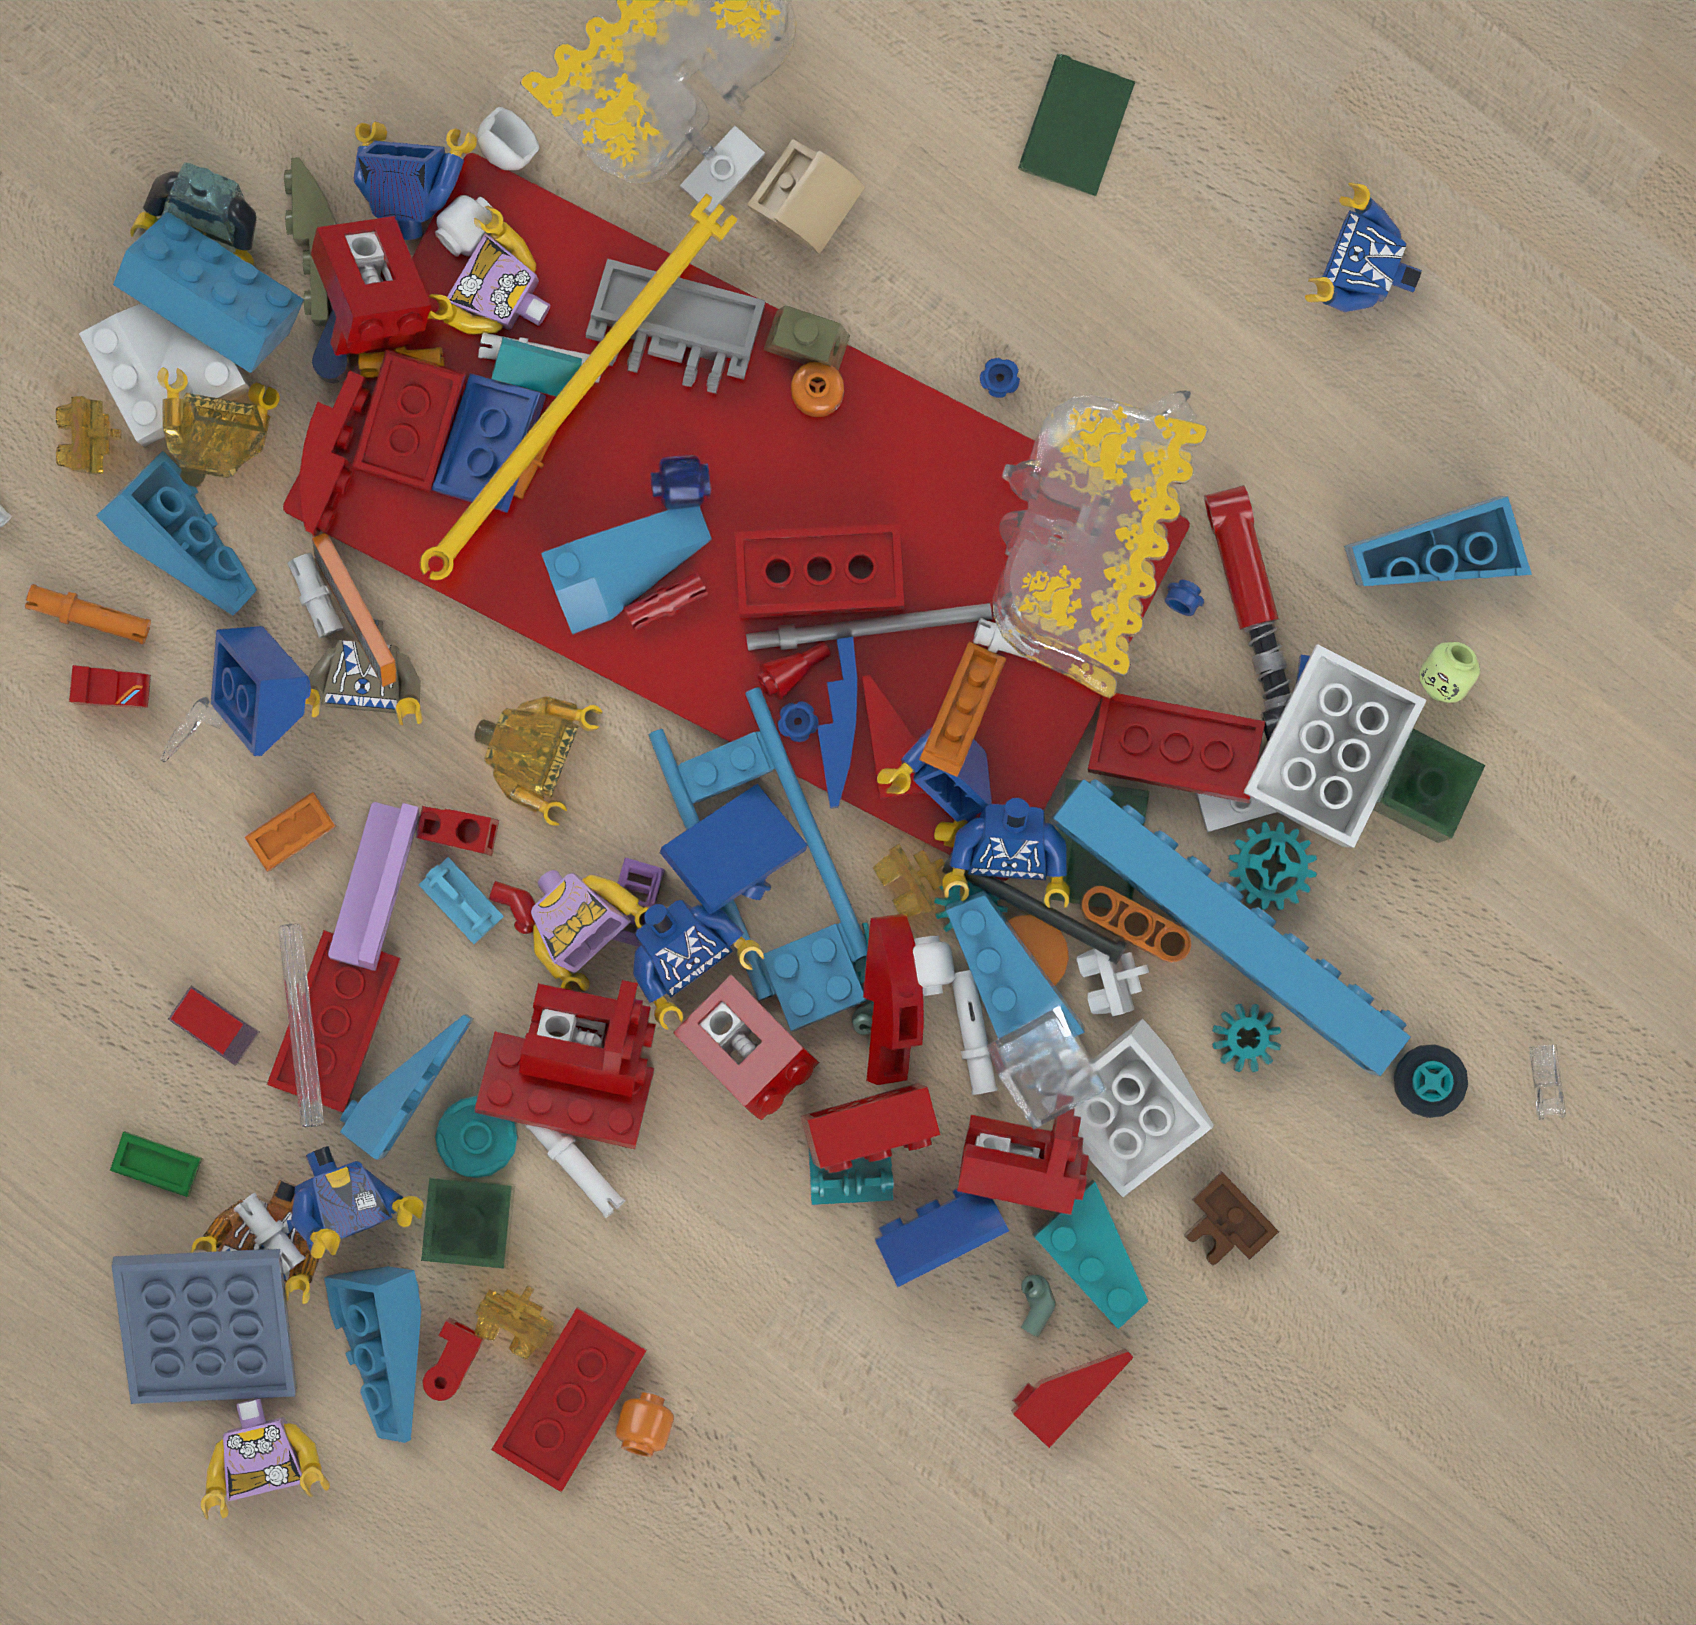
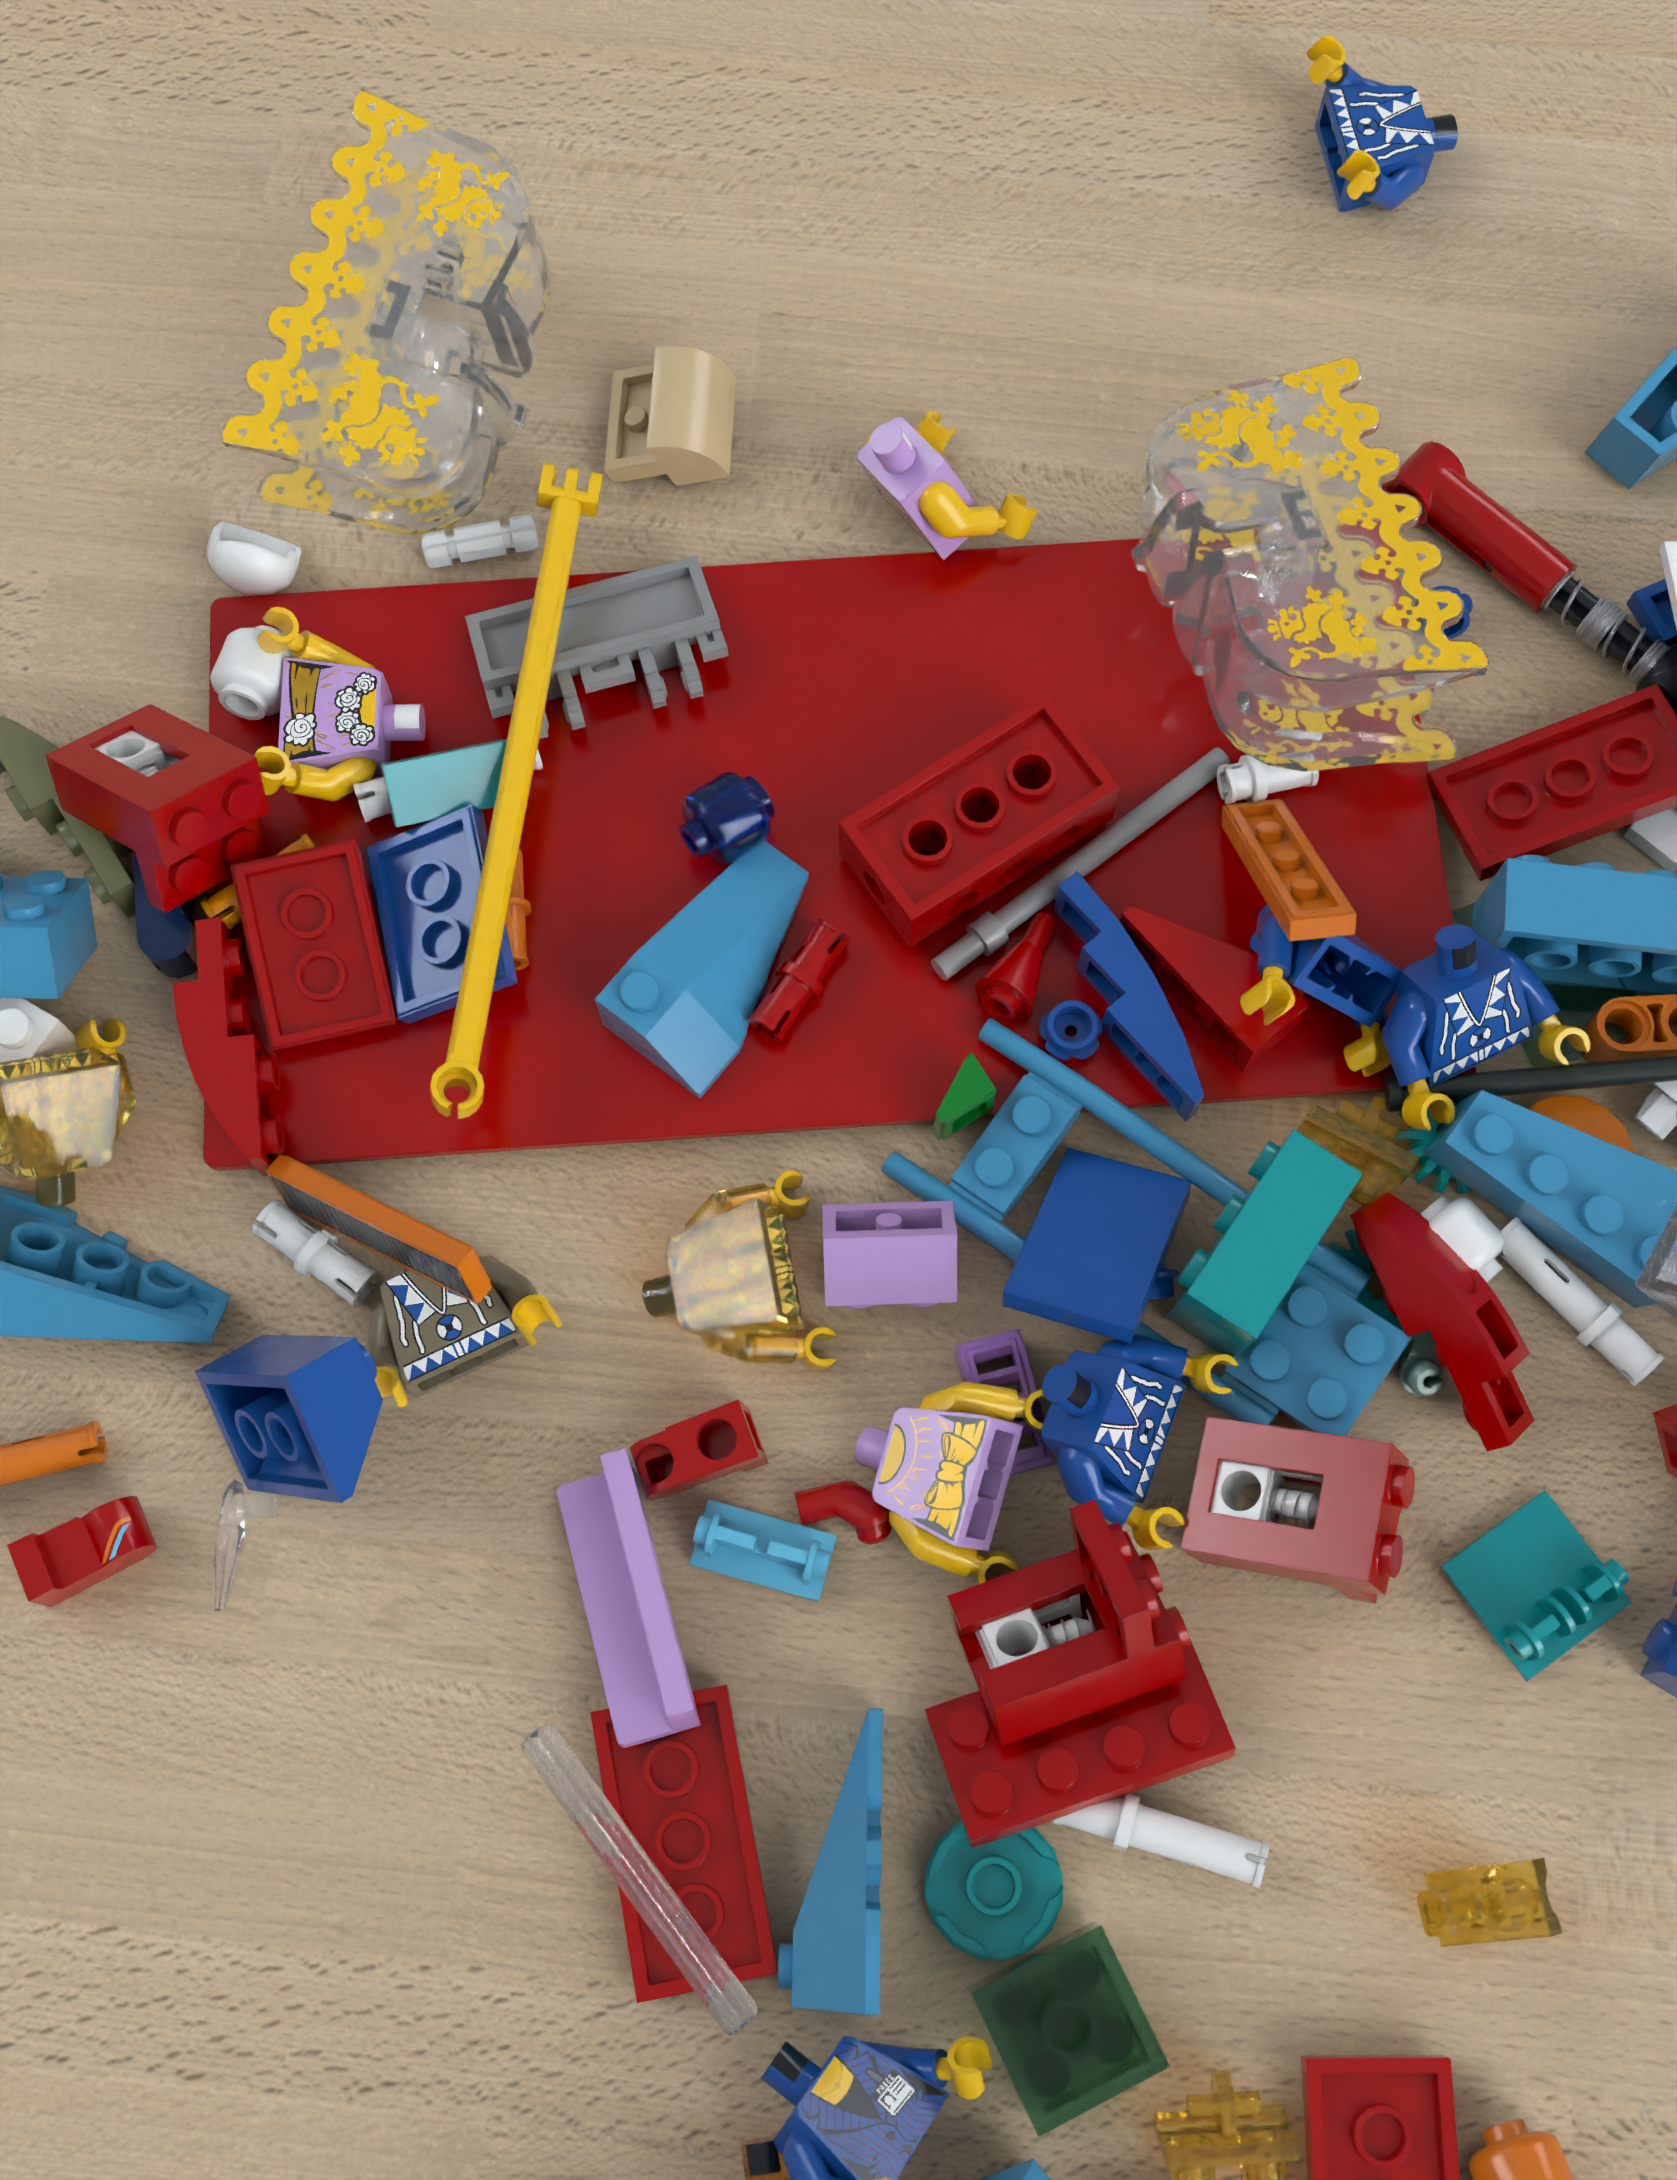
camera: 30 degrees left, 15 degrees down
(213, 1025) = (506, 1961): red tile -> none
(290, 831) = (461, 1600): orange plate -> none
(406, 177) = (148, 655): blue torso -> none
(620, 788) = (890, 1254): none -> lavender brick
(648, 204) = (480, 541): none -> white axle
(711, 1292) = (1488, 1903): none -> clear yellow hips
(713, 726) = (966, 1101): none -> green slope
(724, 171) = (551, 435): white plate -> none
(806, 337) = (776, 560): olive torso -> none
(816, 903) = (1262, 1243): none -> teal wedge
(817, 403) = (830, 611): orange head -> none
(870, 1127) = (1547, 1508): red brick -> none
(922, 339) = (926, 491): none -> torso
(1007, 369) = (1046, 482): blue plate -> none
(1076, 125) = (941, 193): clear green piece -> none

